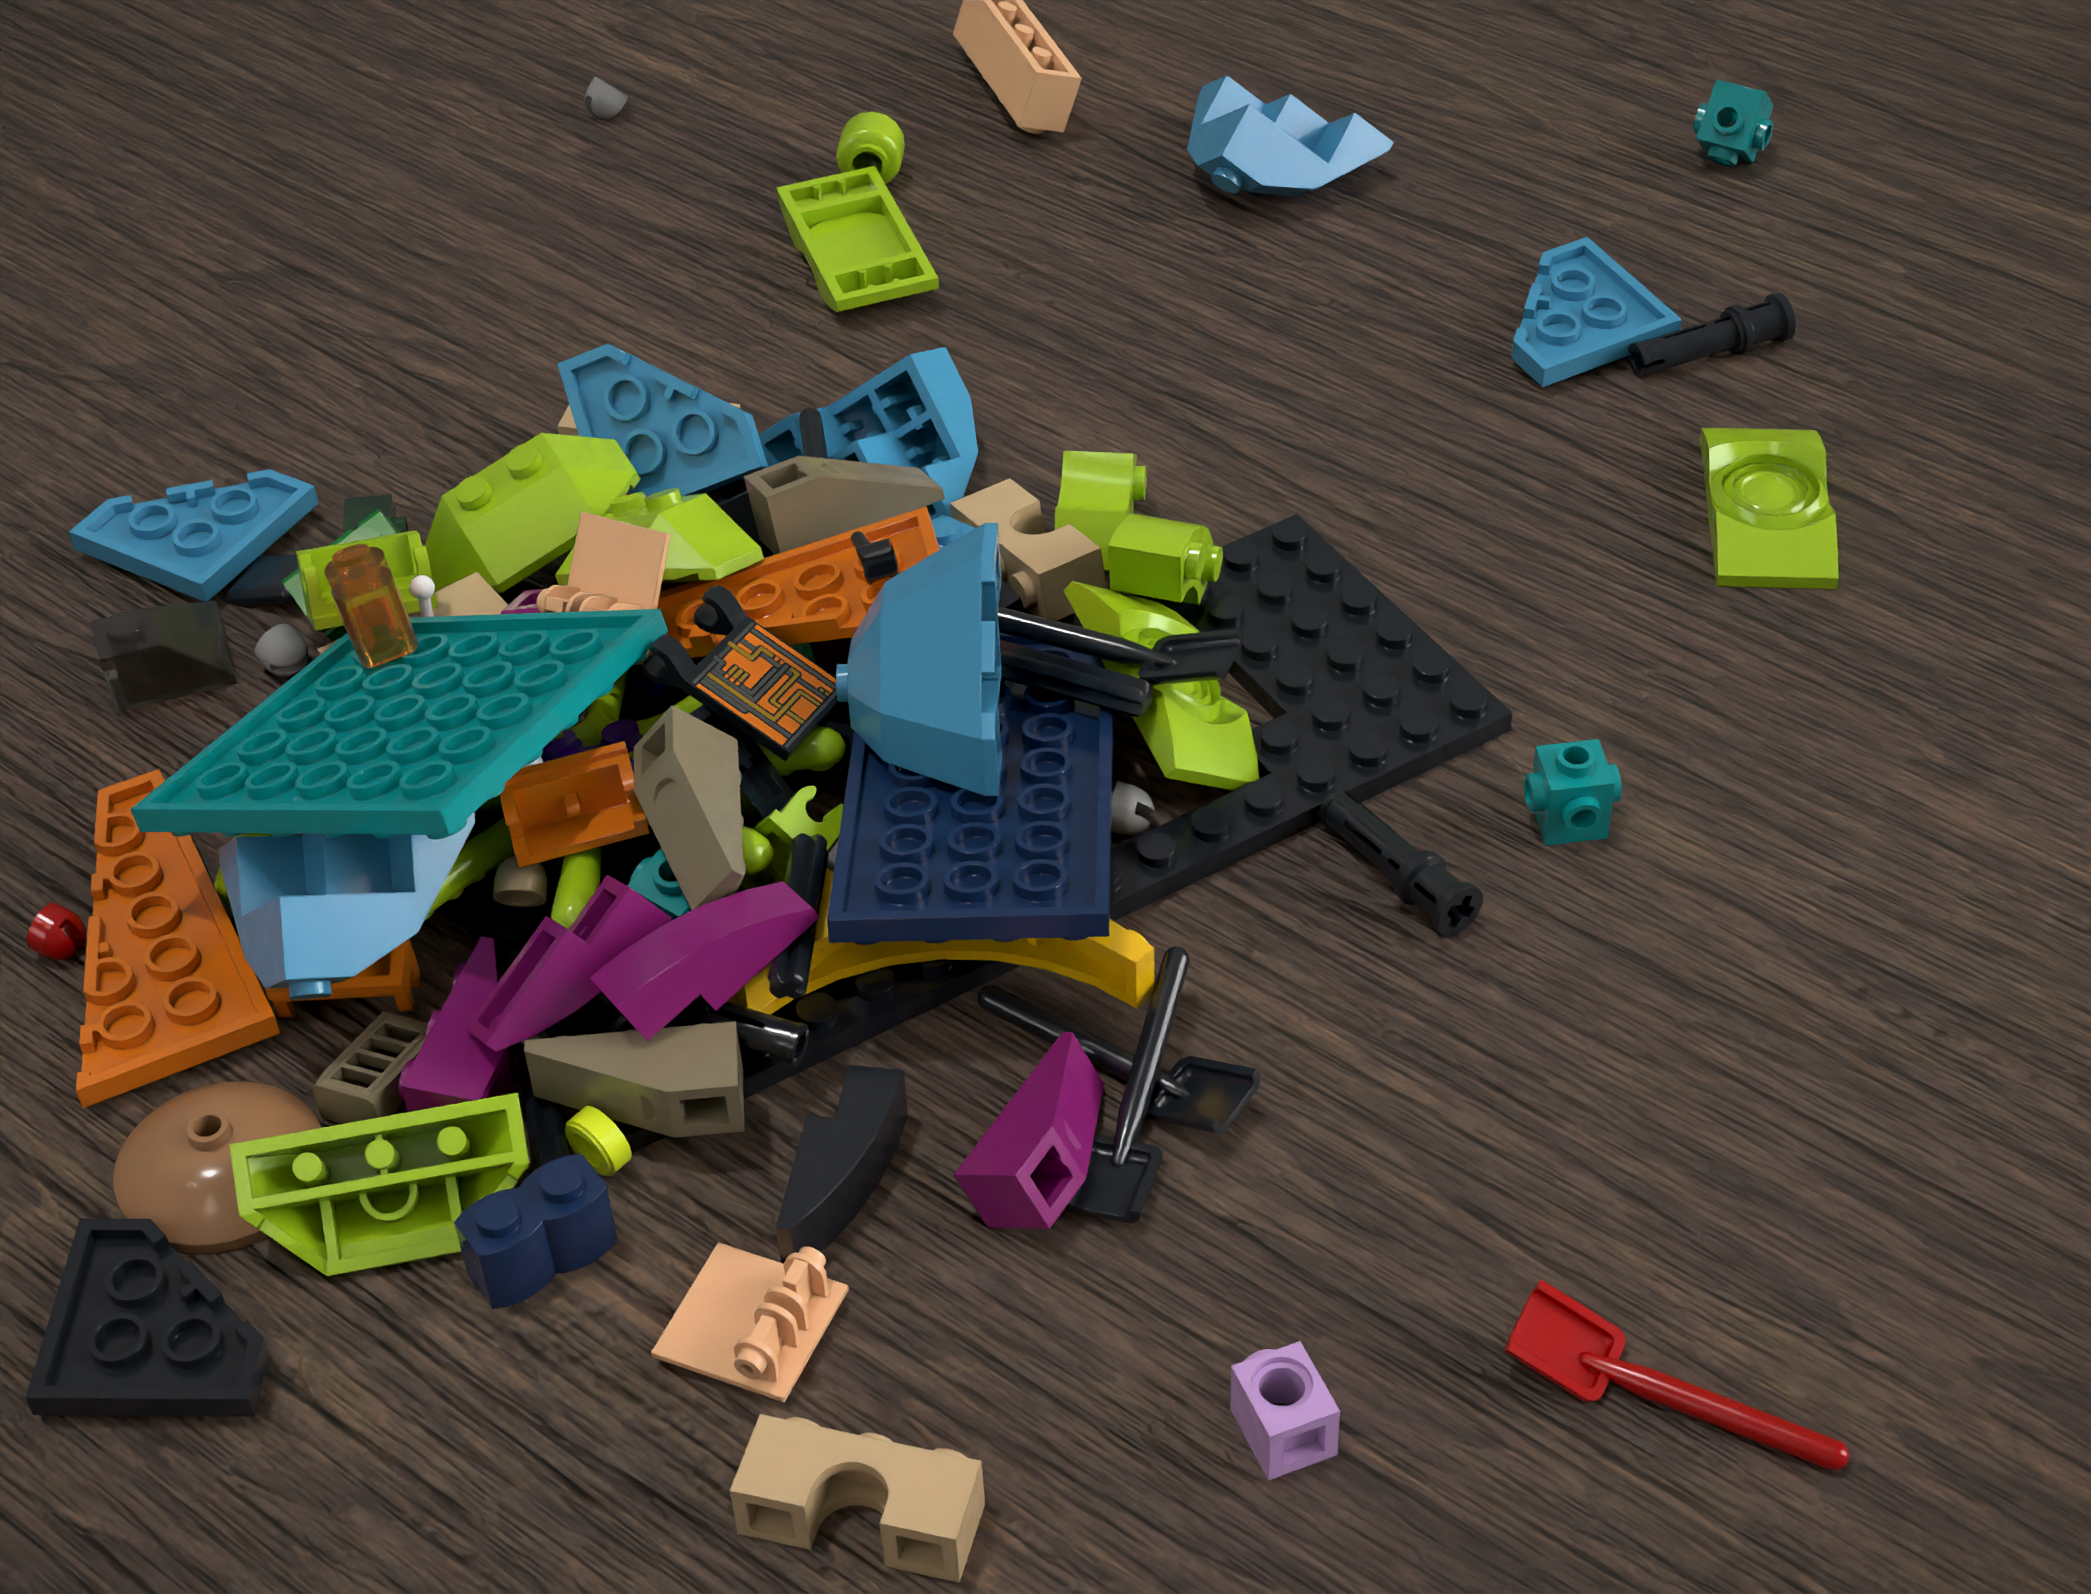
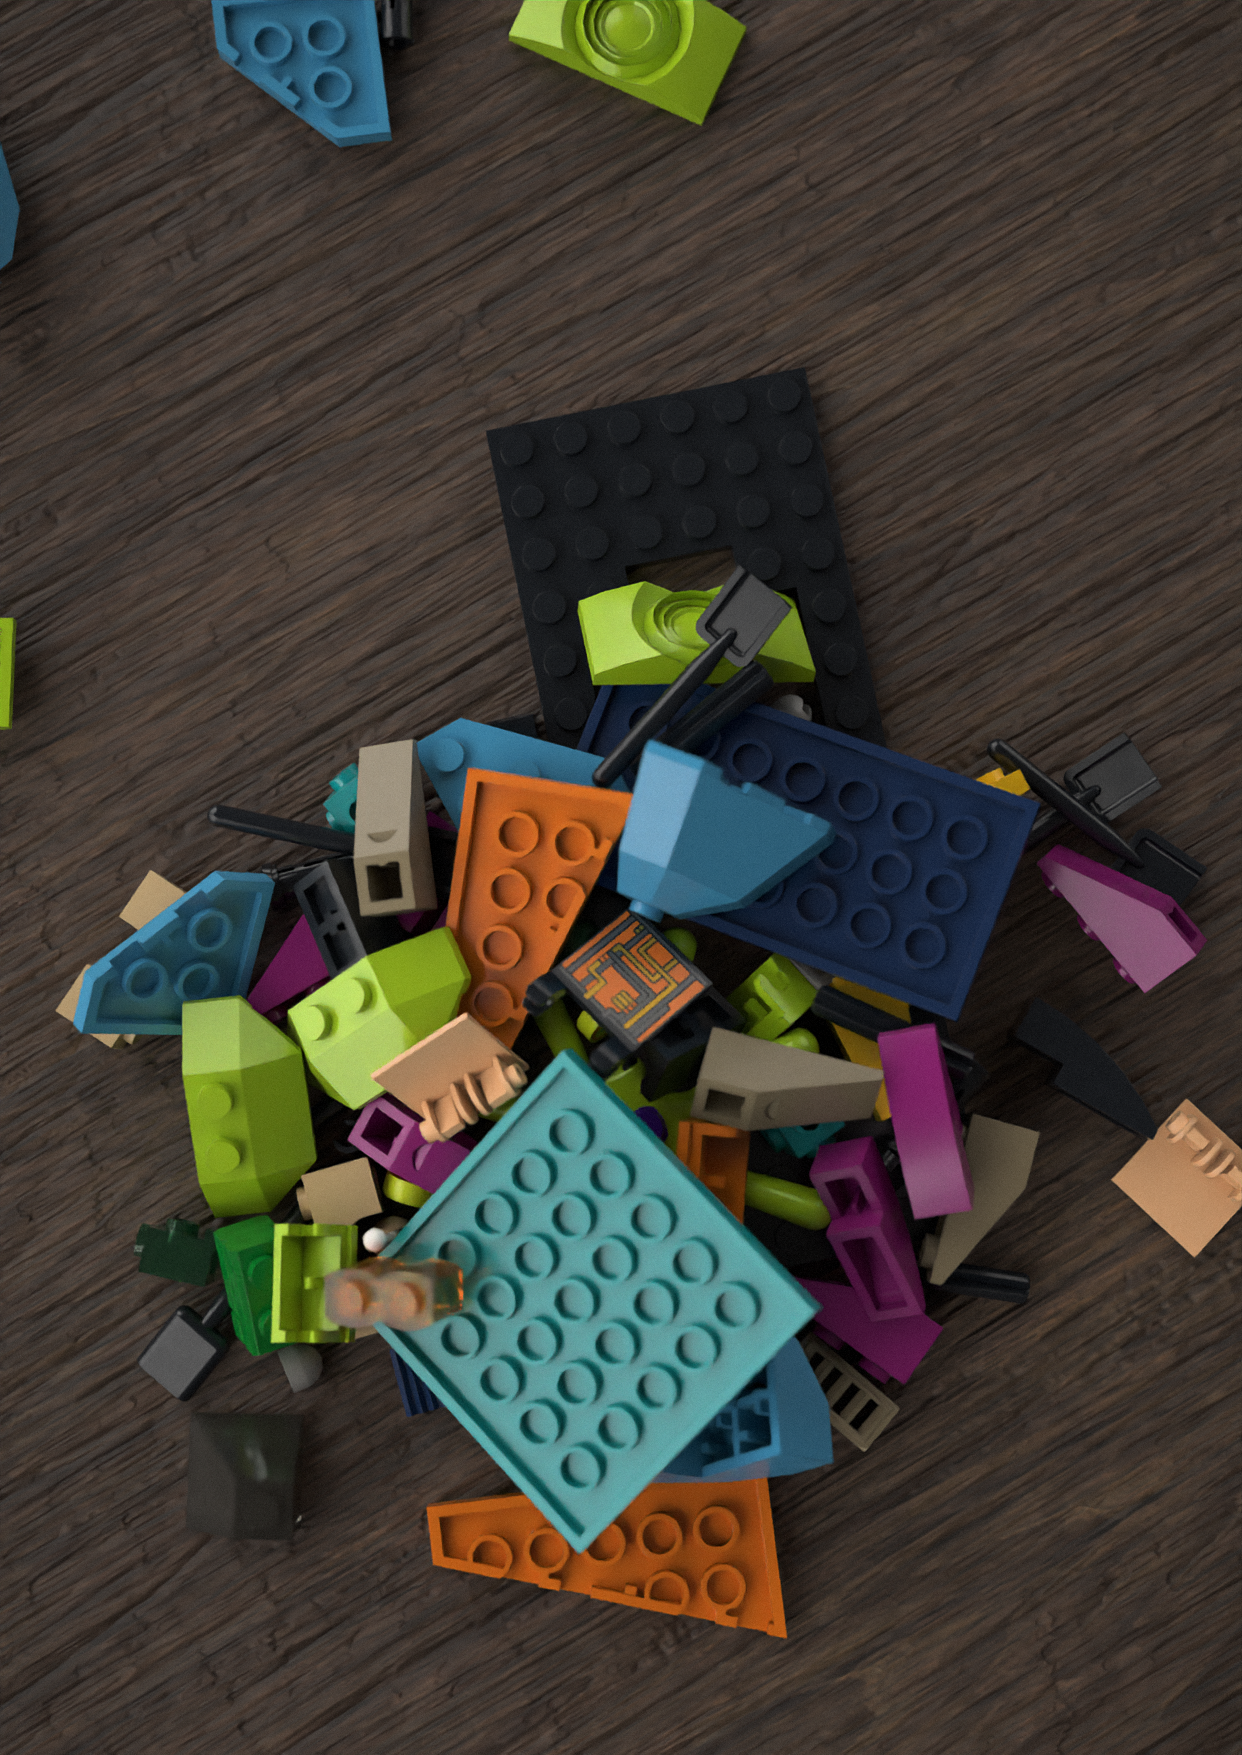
camera: 70 degrees left, 40 degrees up
(56, 932) = (583, 1628): red hinge -> none
(142, 1333) = (1041, 1623): black plate -> none
(181, 1165) = (873, 1496): medium nougat dish -> none
(197, 533) = (88, 1413): dark azure plate -> none
(380, 1185) = (978, 1416): lime wedge -> none
(532, 1232) = (1069, 1327): dark blue brick -> none
(598, 1140) = (996, 1243): neon yellow tile -> none
(877, 557) = (544, 839): black hand -> none
(902, 417) = (250, 744): dark azure brick -> none
(1033, 561) = (504, 679): tan arch -> none
(1099, 493) = (417, 600): lime brick -> none
(1163, 558) = (567, 579): lime brick -> none
(1417, 875) = (954, 524): black pin -> none
(1572, 791) = (918, 382): teal brick -> none

